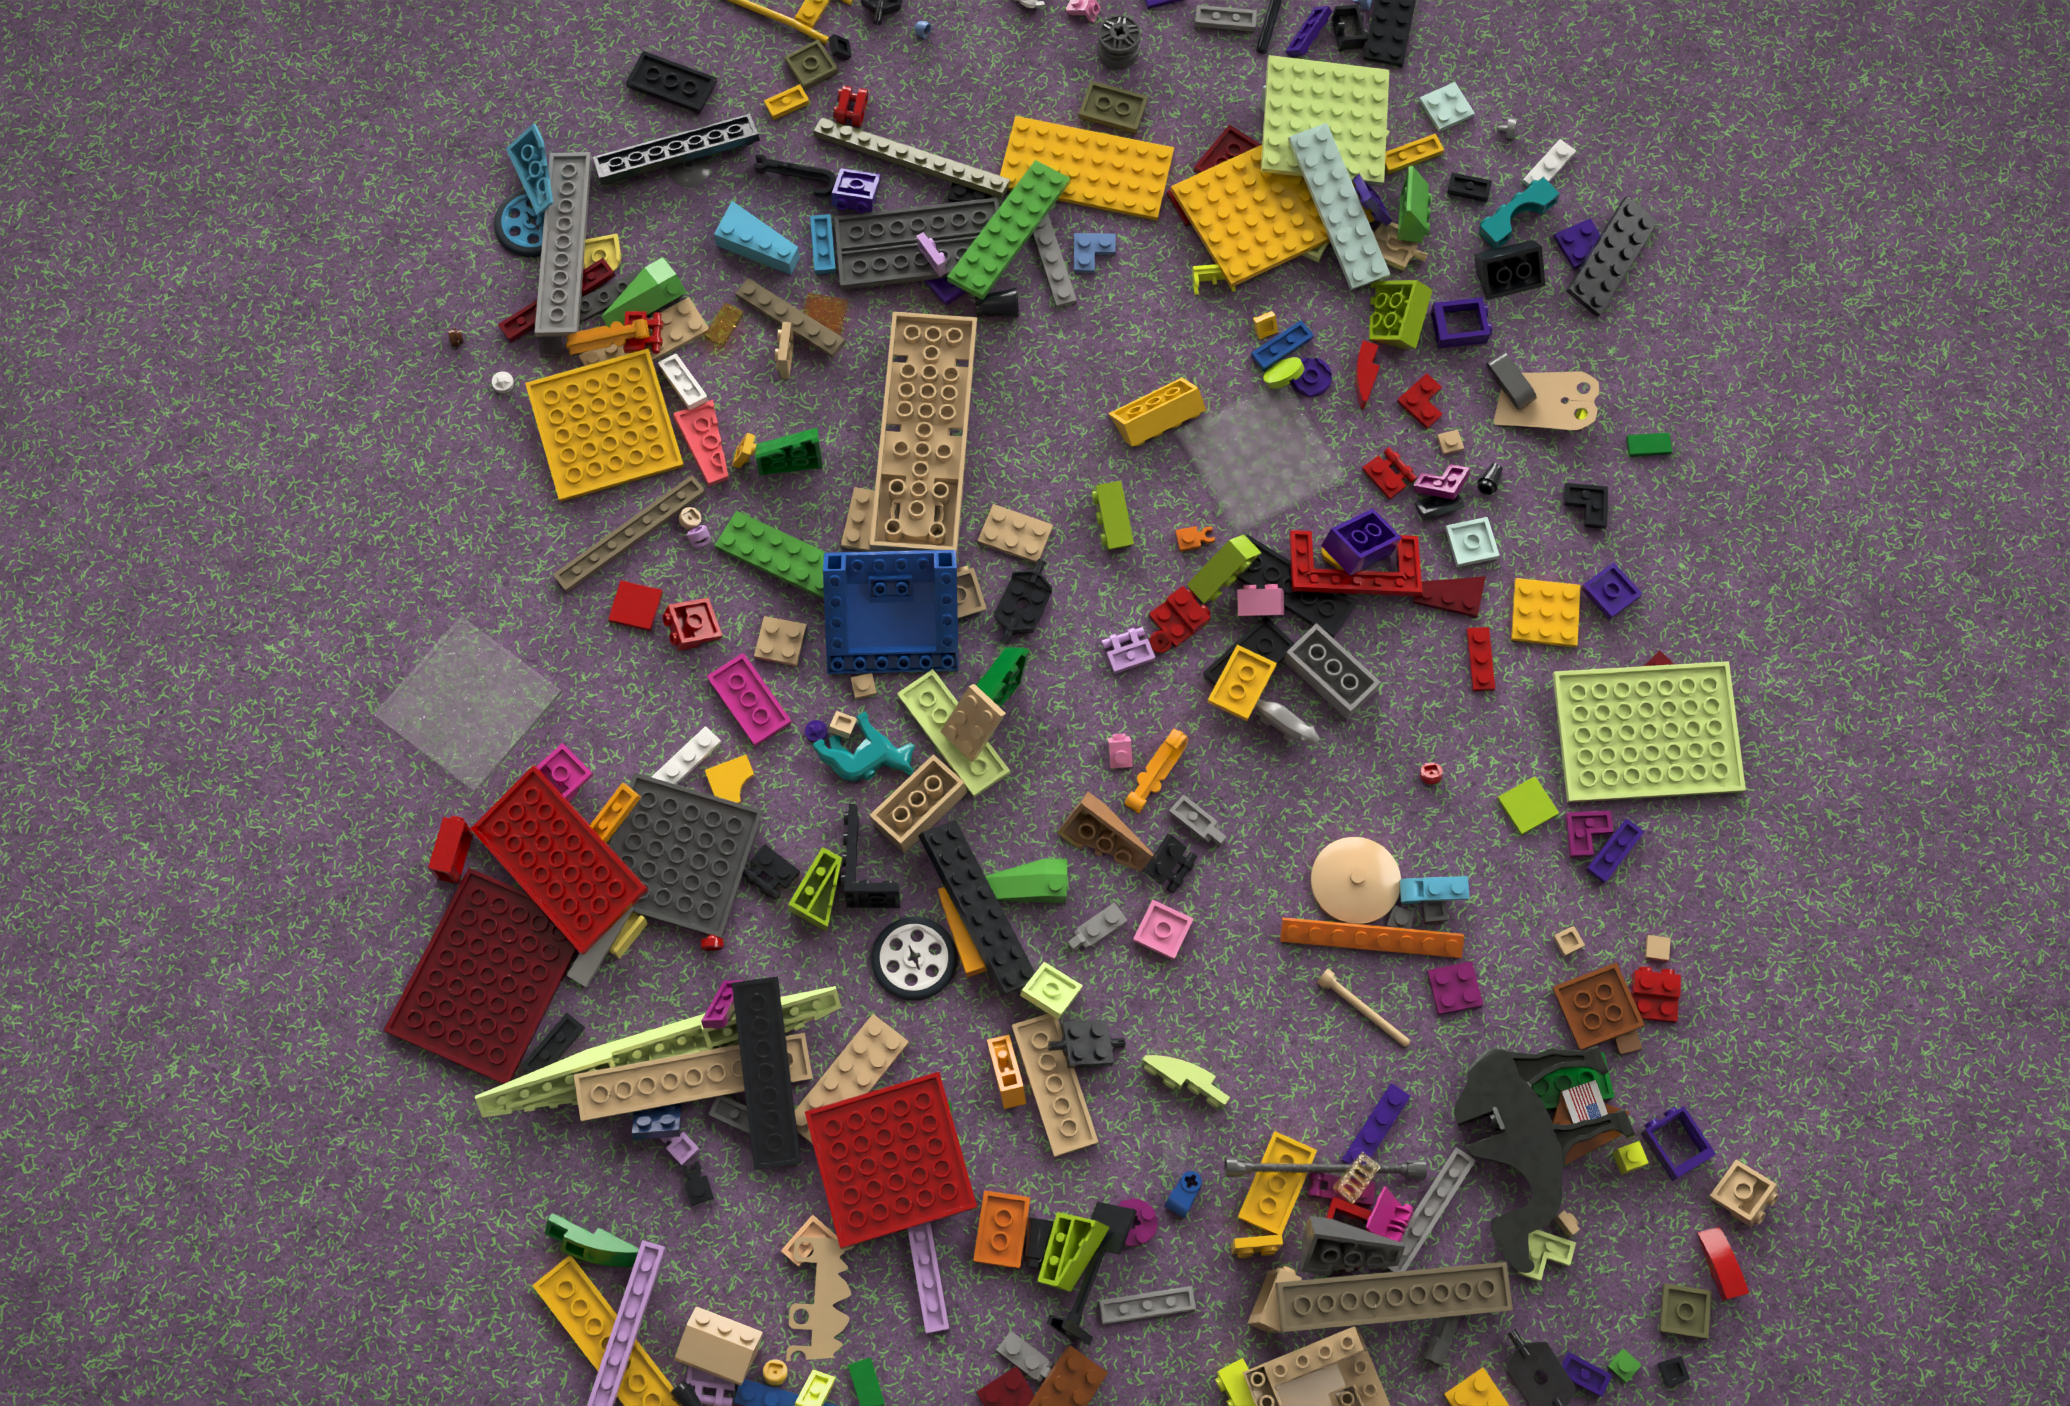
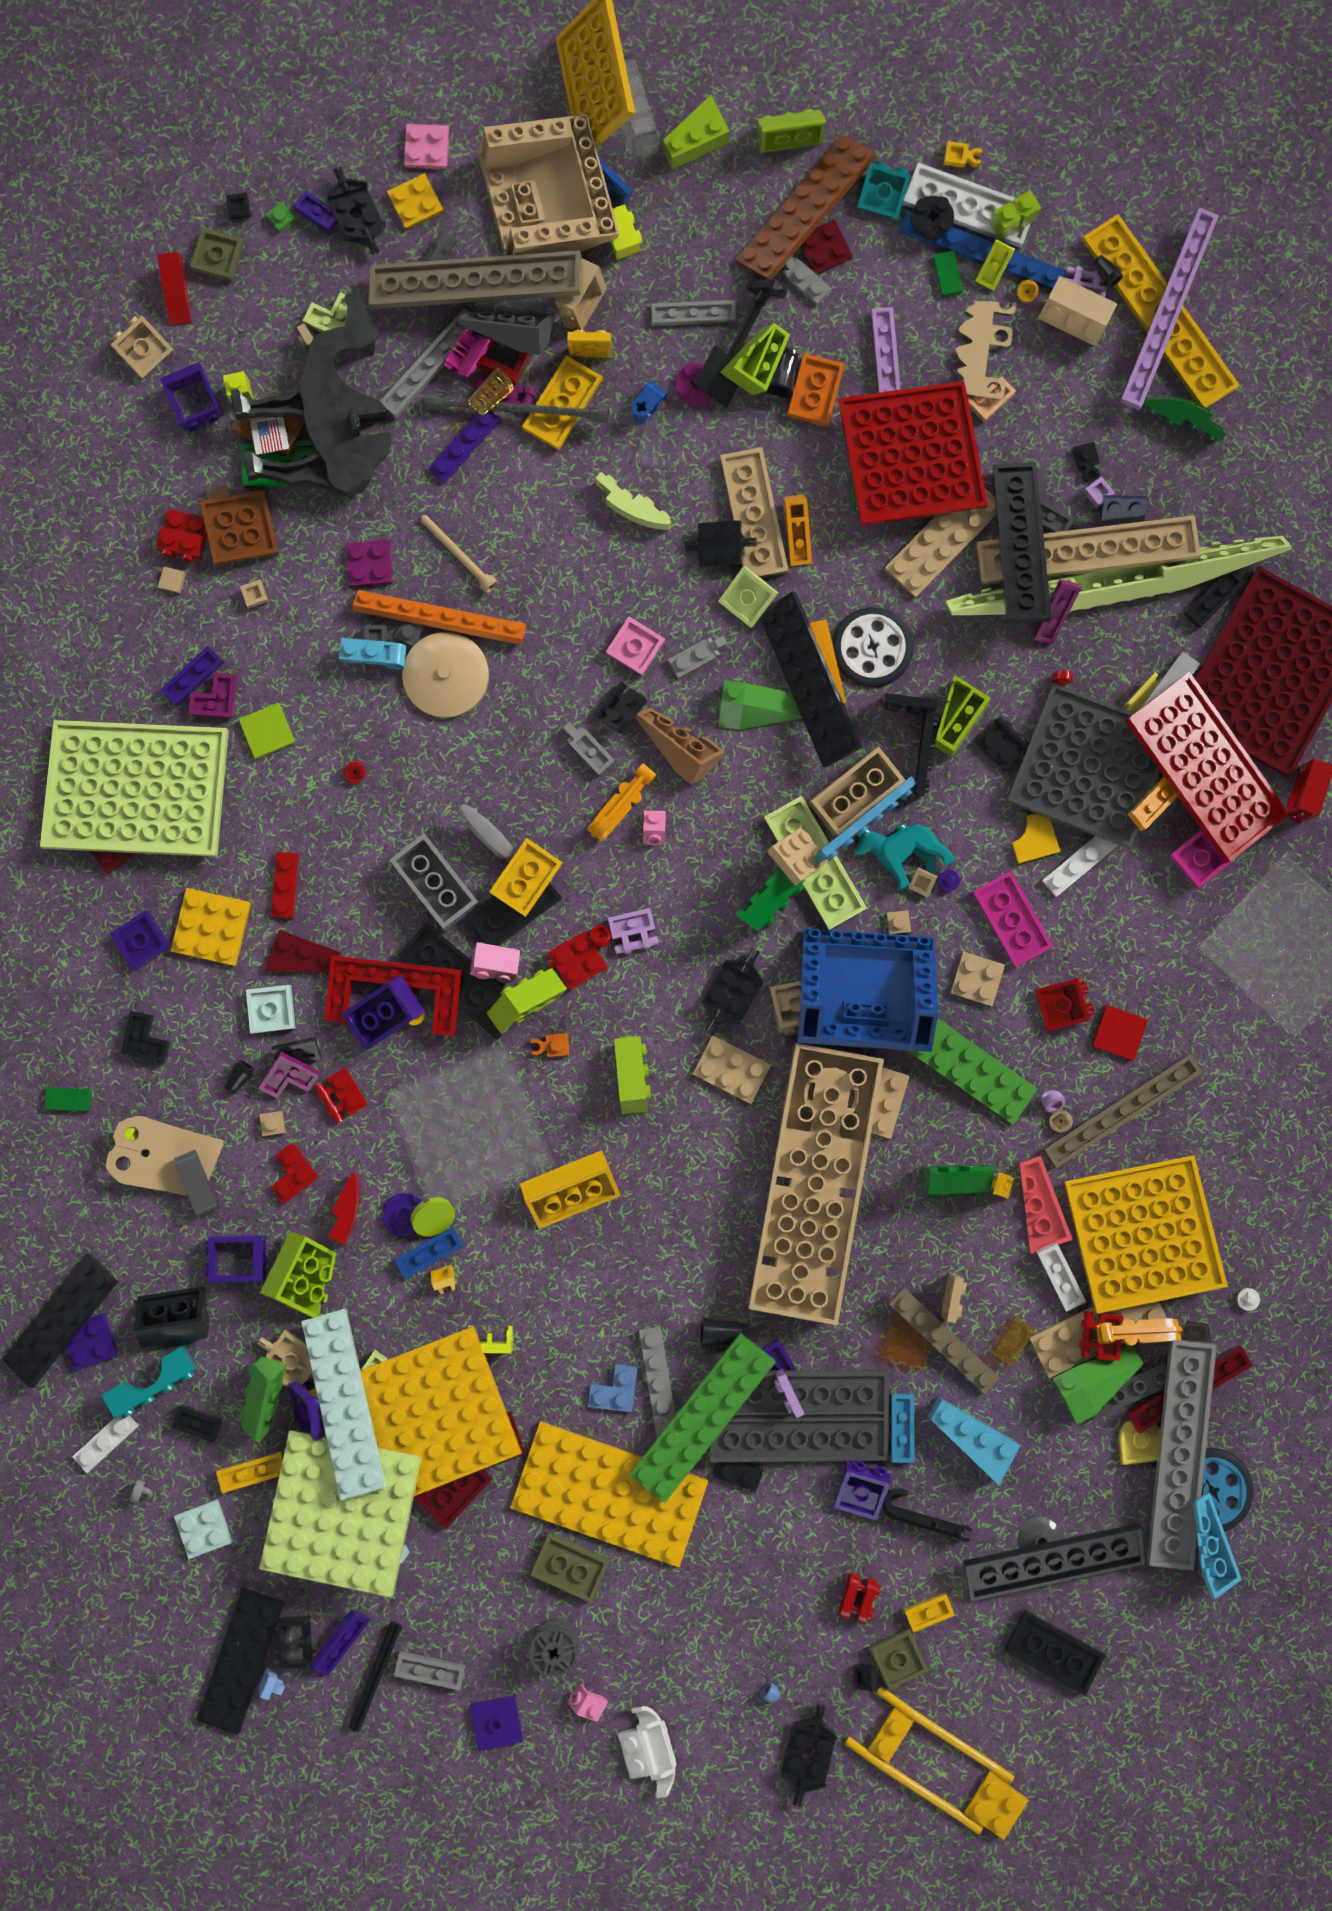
camera: 175 degrees left, 15 degrees up
(455, 337) = (1297, 1357): reddish brown plate -> none
(912, 158) = (798, 1524): plate -> none
(913, 760) = (860, 825): none -> dark azure plate

